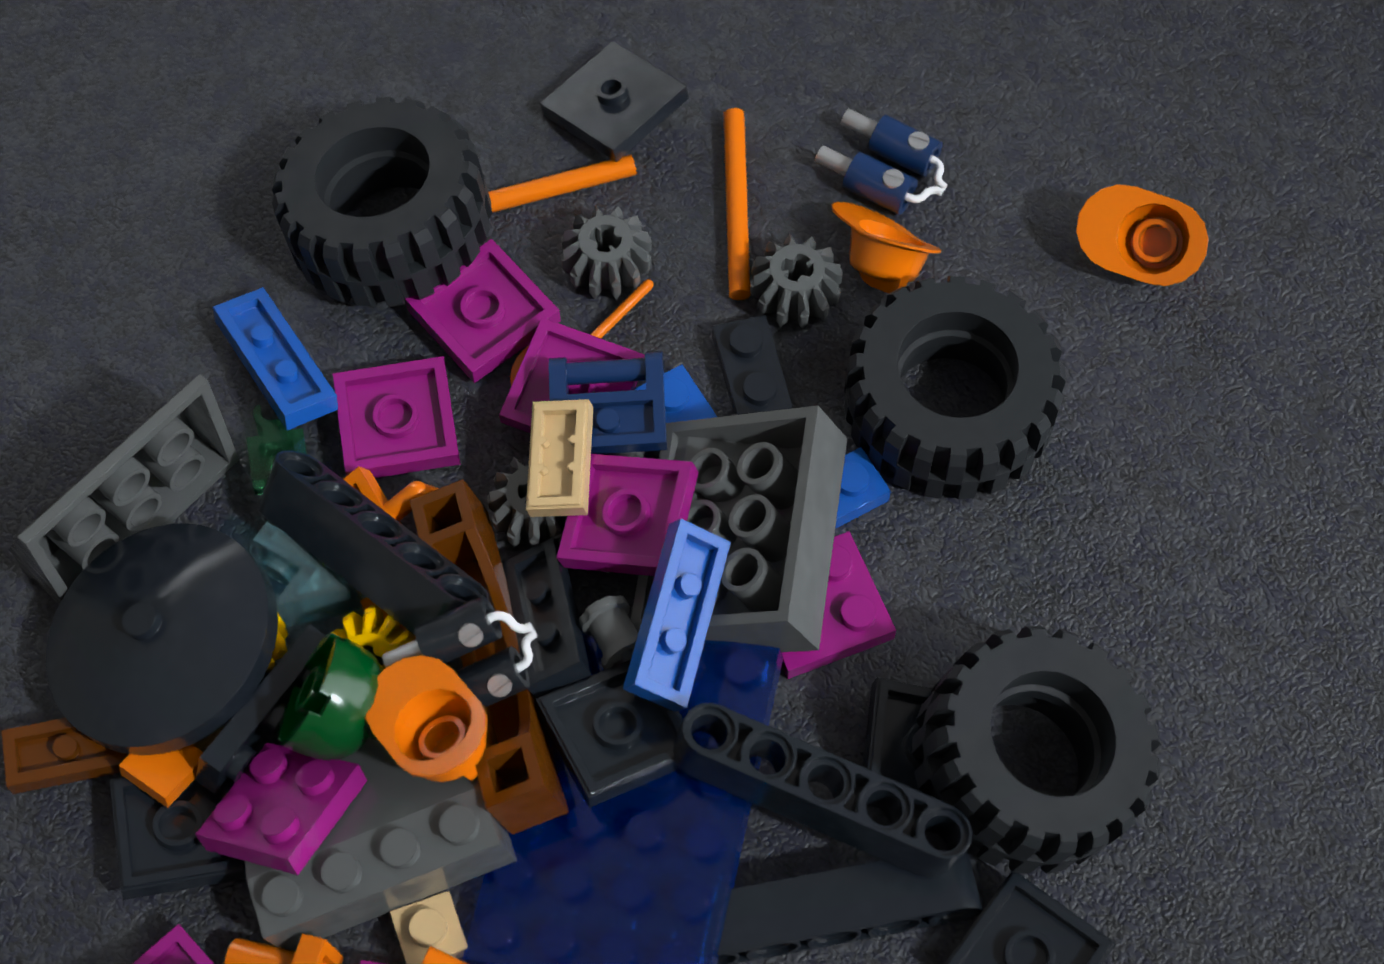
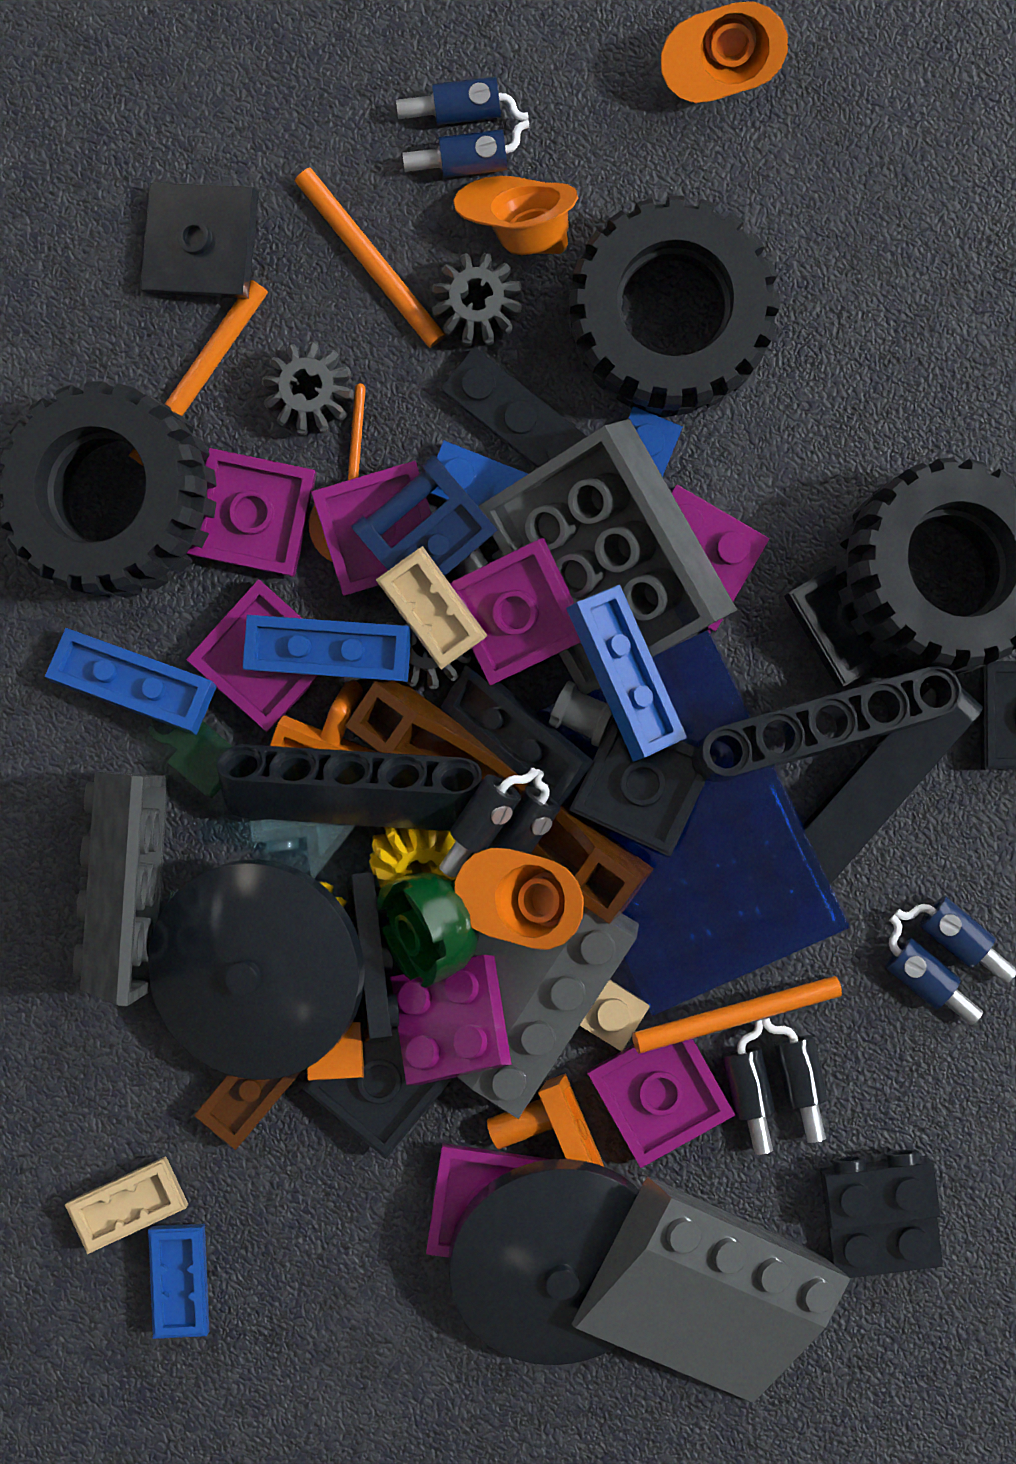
camera: 40 degrees left, 25 degrees up
(450, 433) = (327, 648): none -> blue plate

